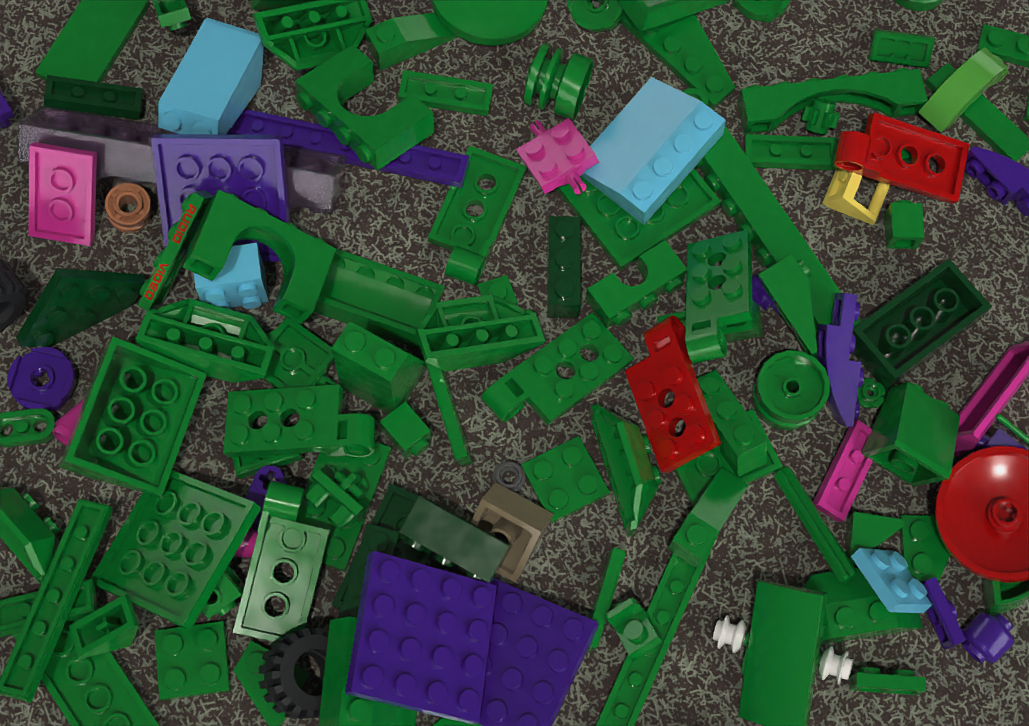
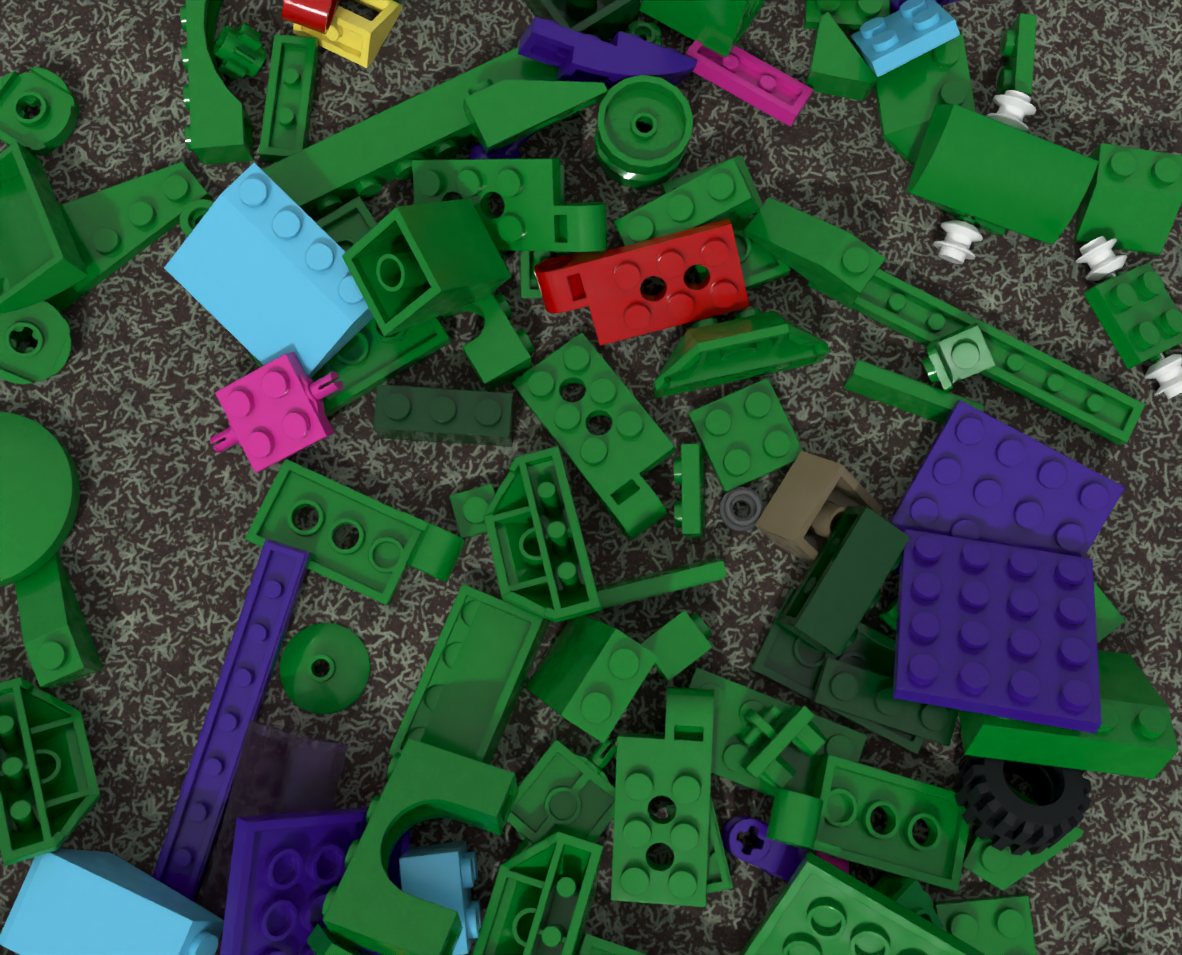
camera: 85 degrees left, 10 degrees up
(373, 138) = (229, 676): green arch -> none
(384, 217) = (347, 672): none -> green dish
(447, 92) = (152, 571): green plate -> none
(518, 439) = (690, 472): none -> green plate
(558, 81) = (155, 401): green wheel -> none
(665, 236) = (425, 263): none -> green slope
(815, 525) = (821, 122): green axle -> none

